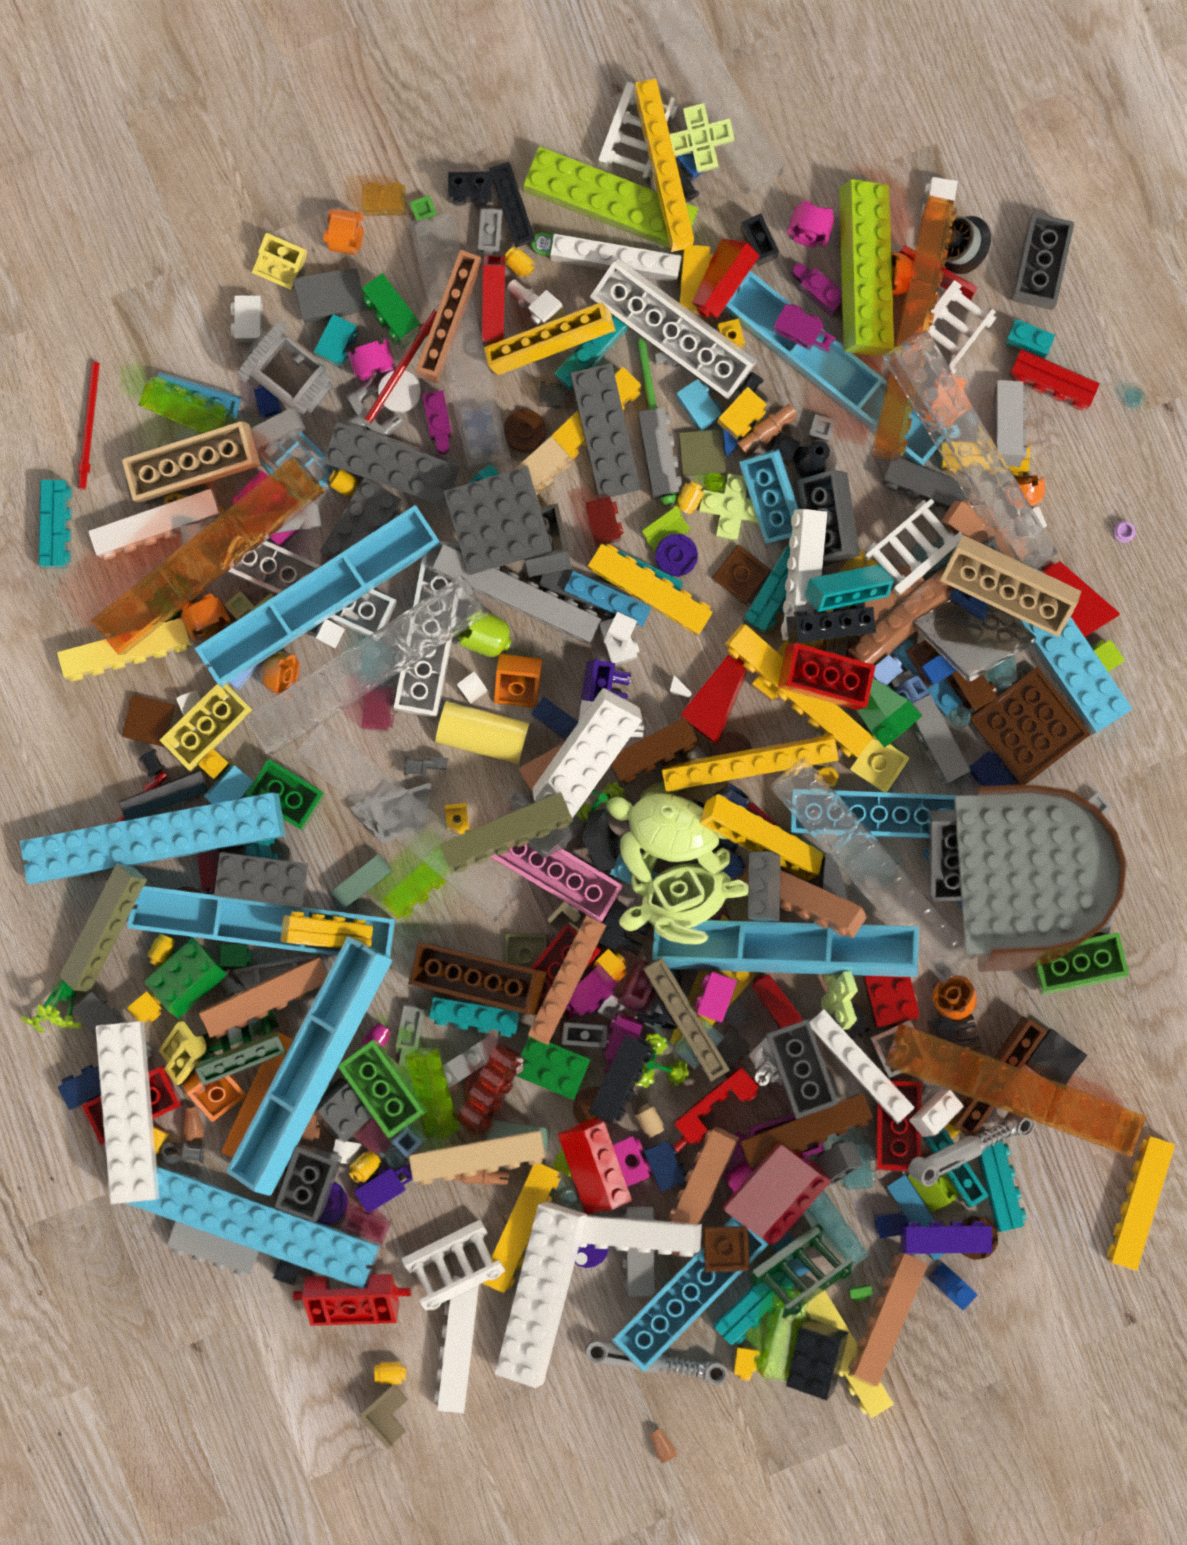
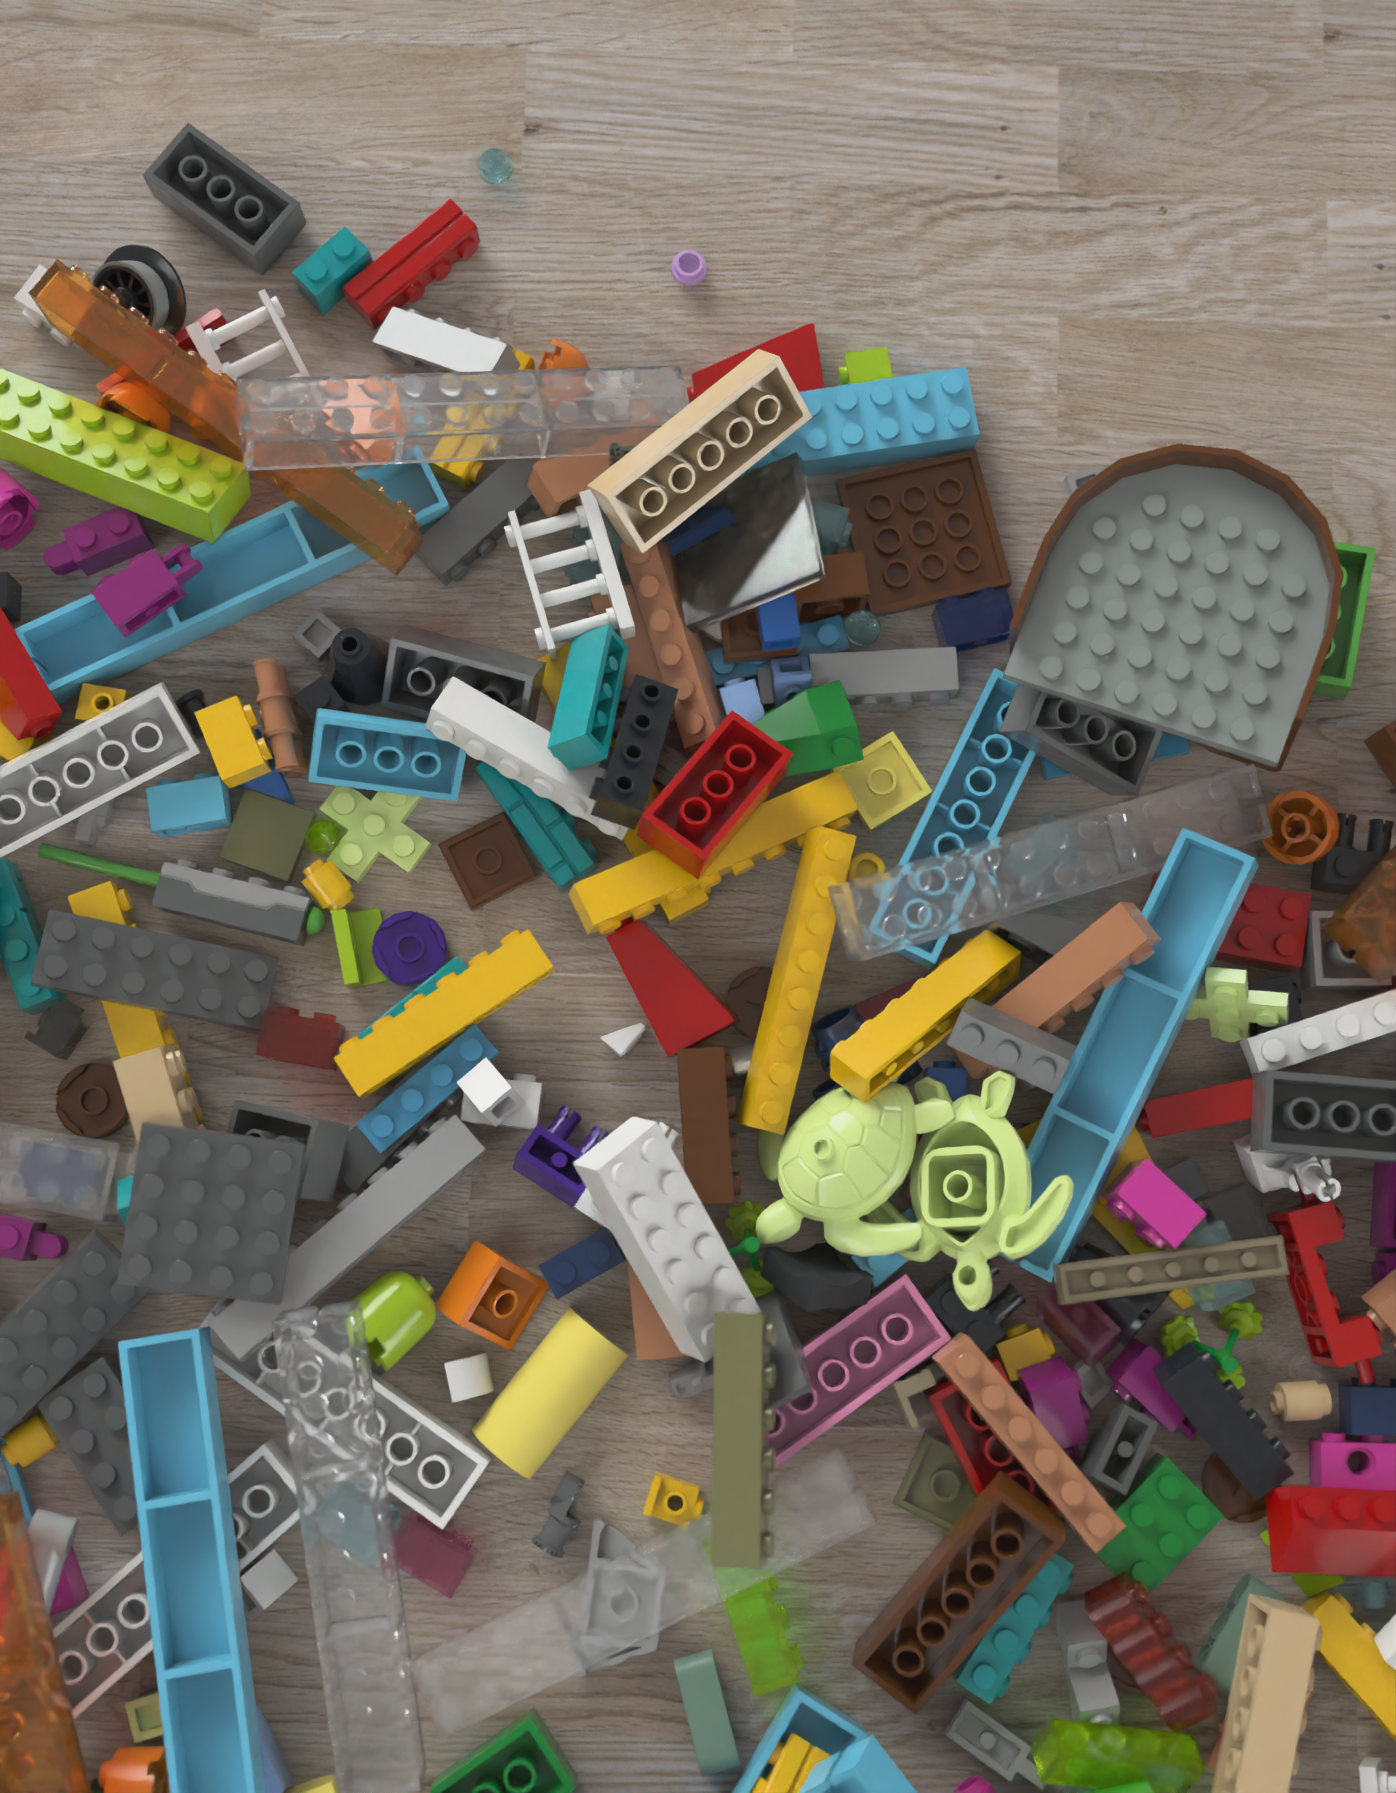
camera: 65 degrees left, 5 degrees down
(279, 671) = (291, 1697): orange cylinder -> none

